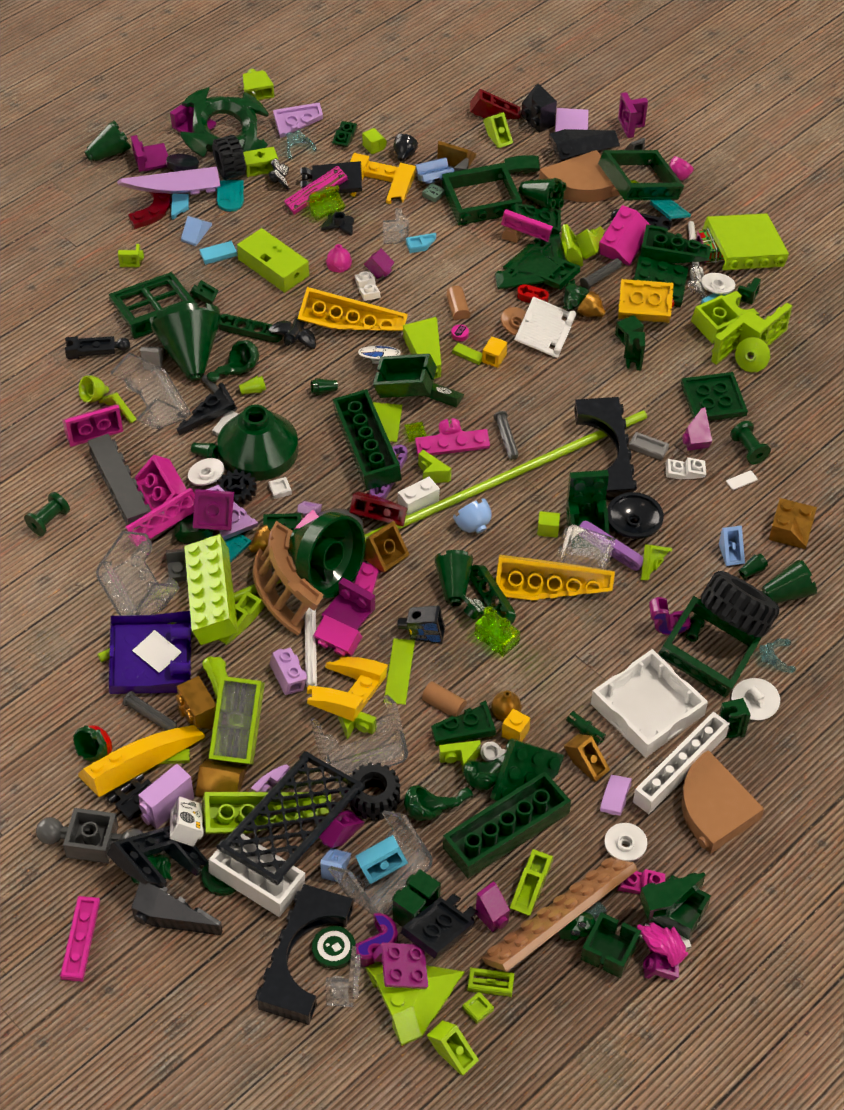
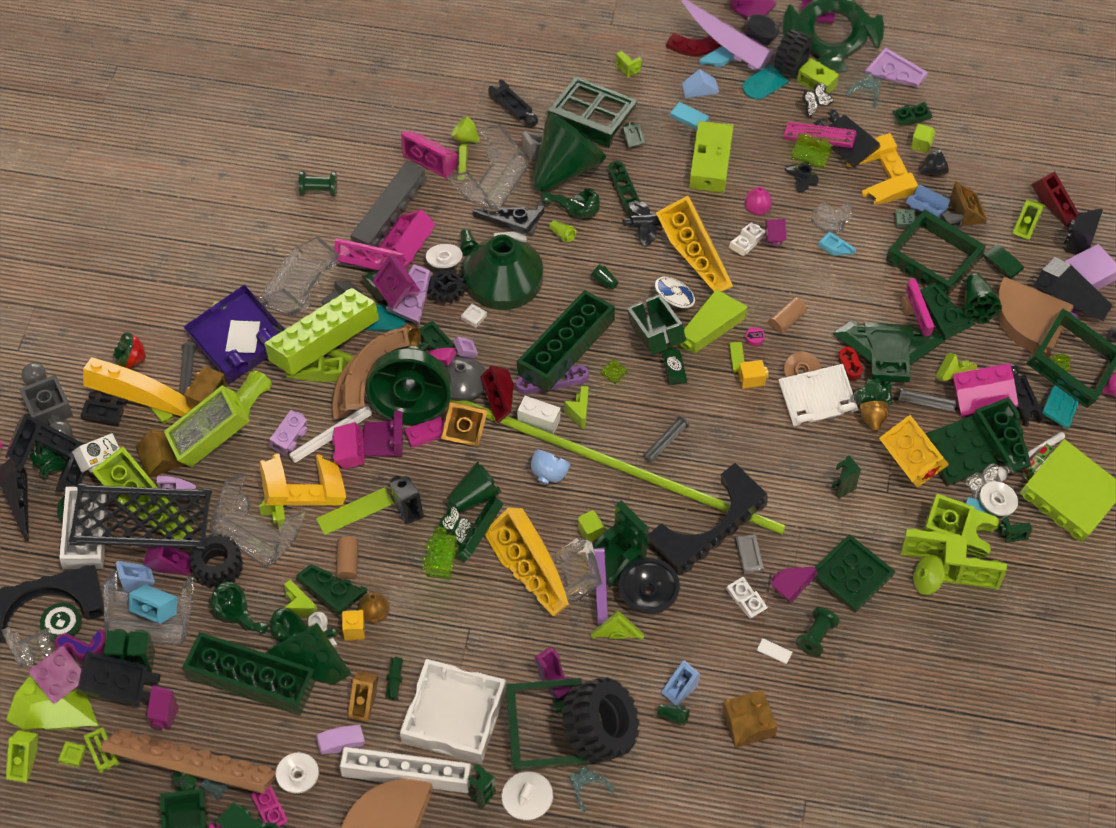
camera: 55 degrees right, 5 degrees up
(162, 794) = (105, 421): lavender brick -> none
(258, 84) = (905, 18): lime torso -> none
(390, 418) = (610, 343): lime sticker -> none
(452, 440) = (624, 402): dark pink plate -> none
(531, 882) = (211, 725): lime slope -> none
(570, 246) = (931, 357): lime tile -> none
(628, 324) = (874, 460): dark green brick -> none
(791, 584) = (672, 754): dark green cone -> none

